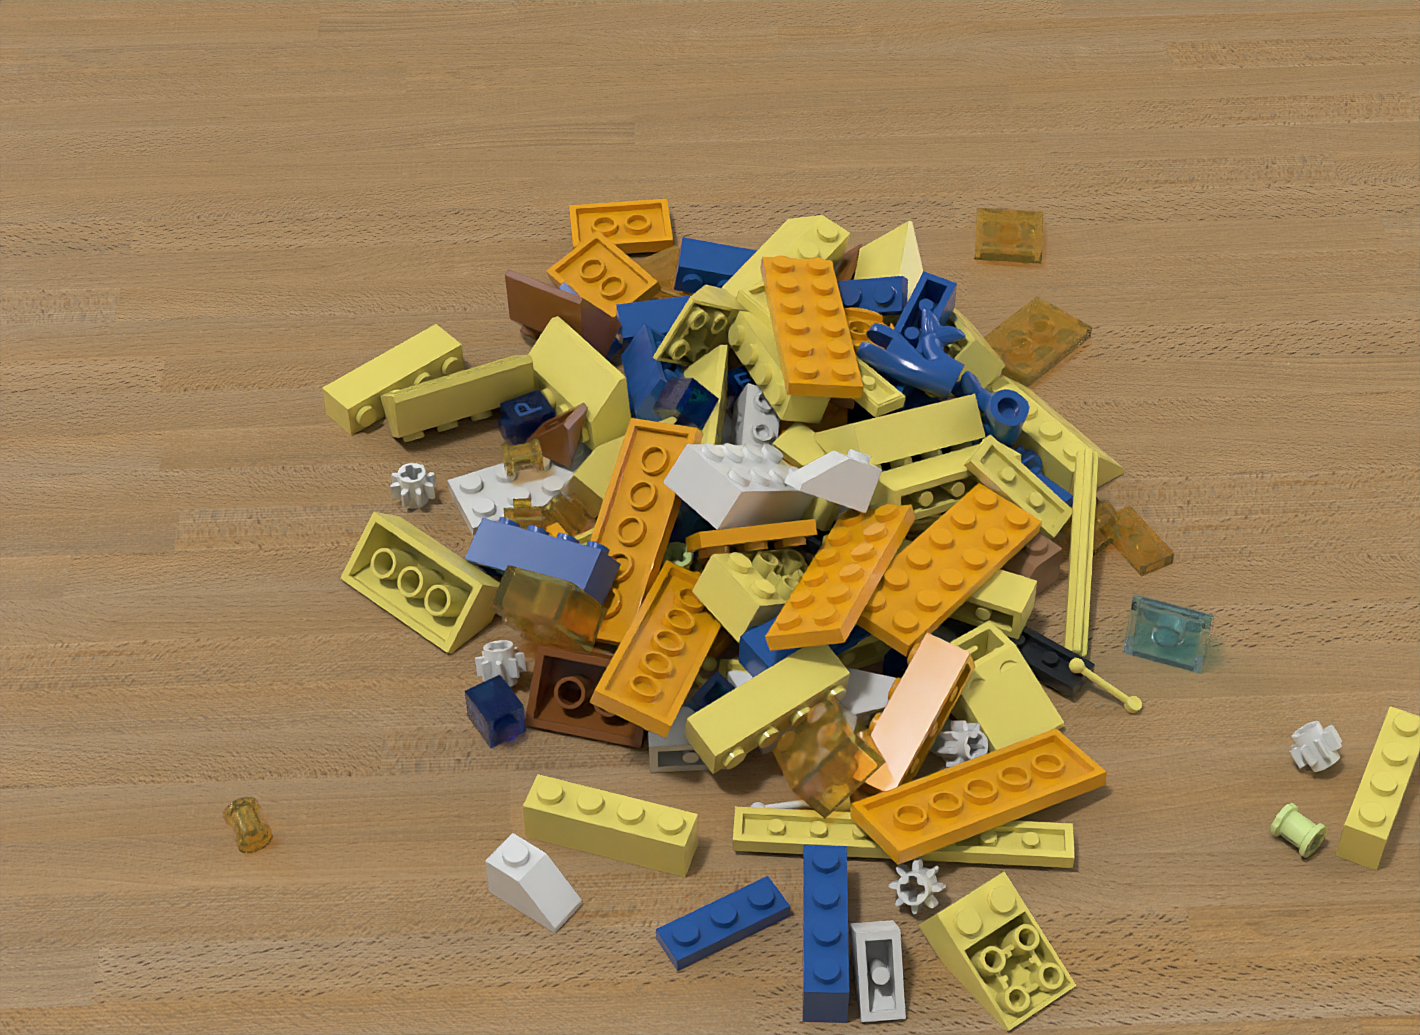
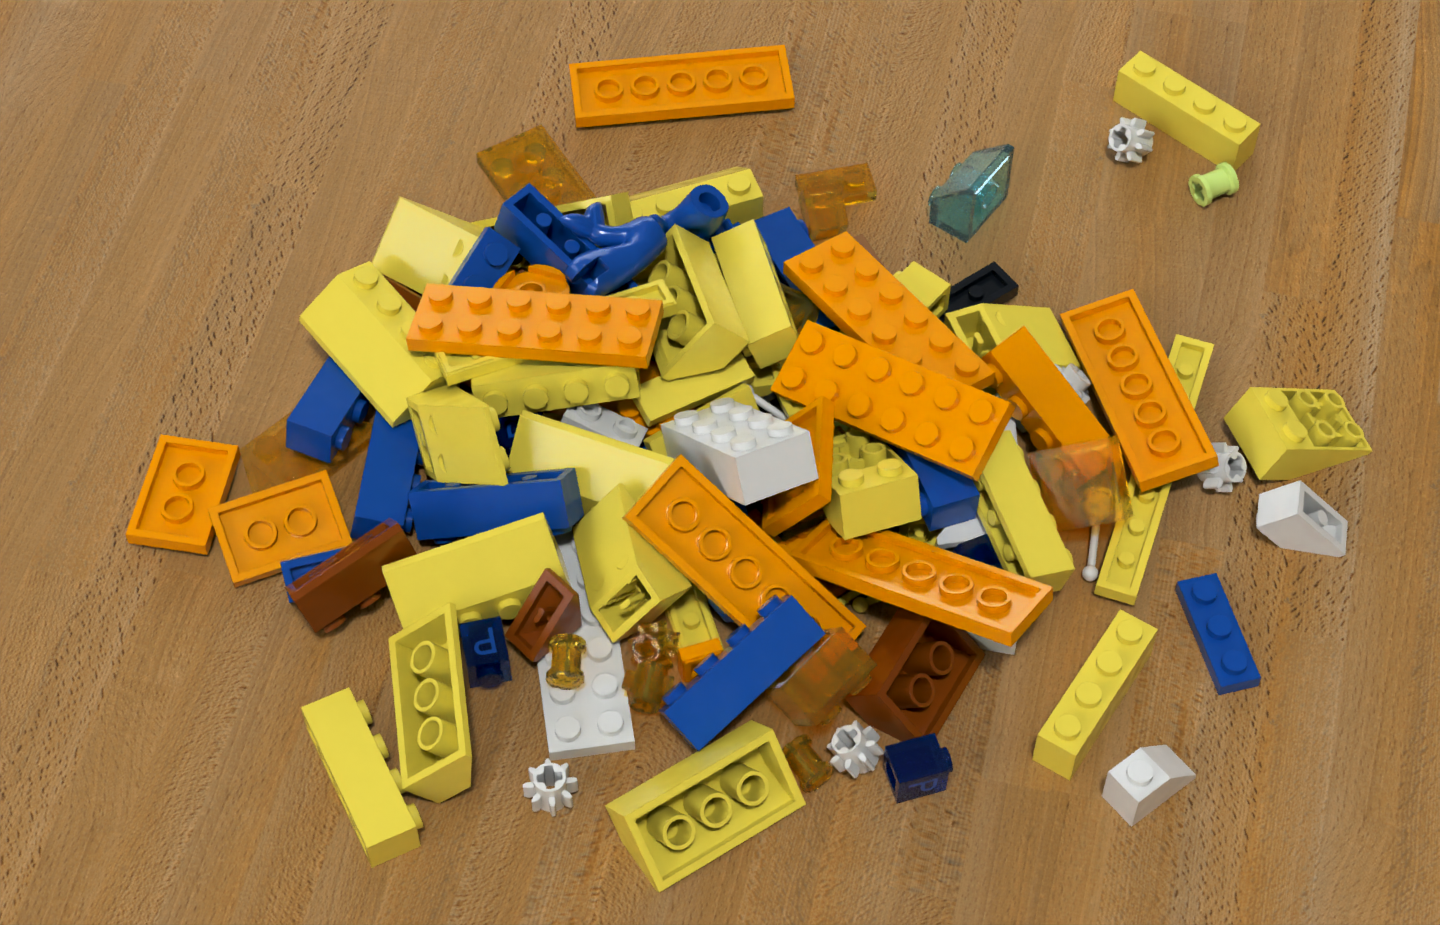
camera: 75 degrees left, 10 degrees up
(471, 638) = (807, 763): none -> clear yellow bush
(686, 402) = (602, 469): brick -> none
(825, 935) = (1259, 550): blue brick -> none
(839, 479) = (771, 362): white slope -> none
(1009, 235) = (363, 150): clear yellow plate -> none
(1017, 484) = (792, 234): light yellow plate -> none
(1081, 552) = (868, 221): light yellow axle -> none
(1131, 704) = (1035, 253): light yellow hinge -> none
(1196, 410) = (681, 86): none -> light orange plate

